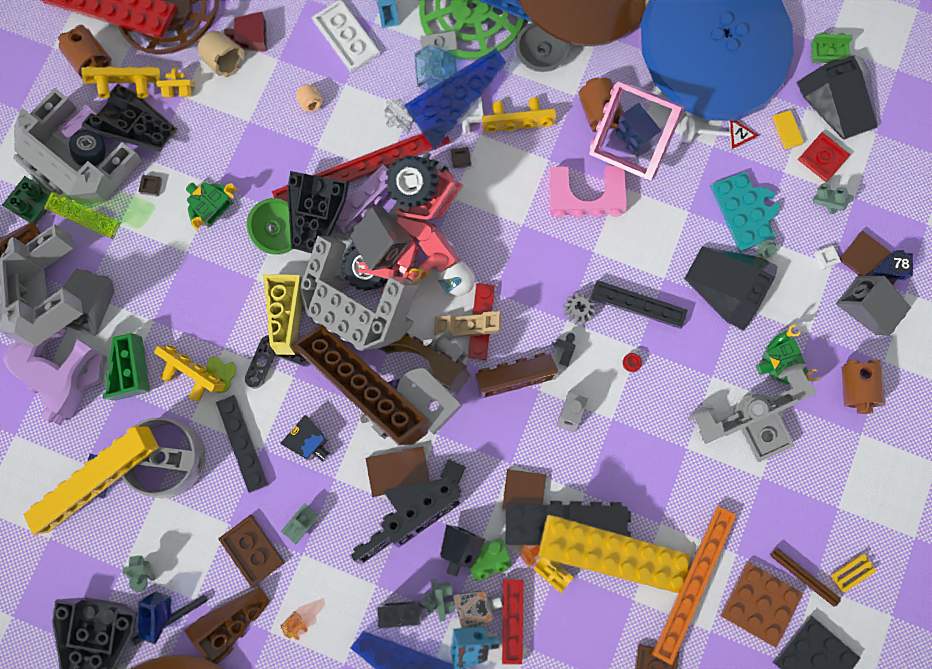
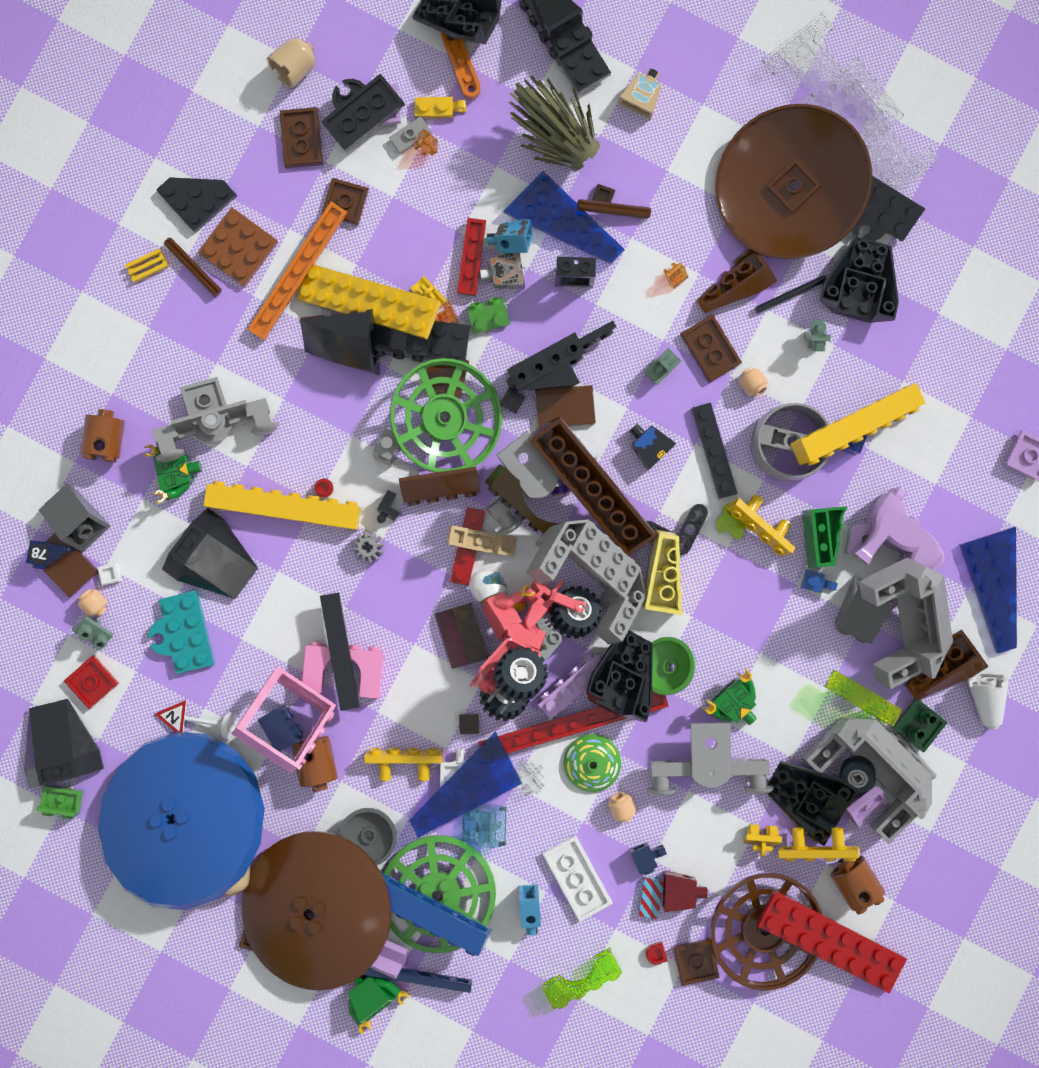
camera: 175 degrees left, 10 degrees up
(134, 324) = (815, 581): none -> blue plate
(150, 185) = (794, 729): dark brown tile -> none
(153, 616) = (805, 297): clear blue slope -> none
(205, 518) = (753, 382): none -> light nougat head
(220, 53) = (713, 868): tan cylinder -> none
(227, 136) = (710, 765): none -> light grey piece
(276, 26) = (650, 897): none -> tile
(283, 58) = (645, 857): none -> dark blue brick
(342, 145) = (592, 749): none -> bright green dish
(379, 238) = (560, 628): dark grey slope -> none
(436, 601) = (539, 282): sand green hips -> none
(446, 41) = (476, 856): light grey plate -> none
(460, 548) = (513, 326): black torso -> none
(476, 235) = (461, 635): none -> dark brown slope
(507, 443) = (455, 410): none -> bright green dish
(593, 205) = (339, 651): none -> black tile
(636, 511) = (341, 339): none -> black wedge
(639, 304) = (308, 545): black plate -> none
(670, 339) = (282, 506): none -> yellow brick
(767, 248) = (169, 588): sand green plate -> none
(787, 130) = (123, 716): yellow tile -> none
(838, 227) = (92, 603): none -> light nougat head

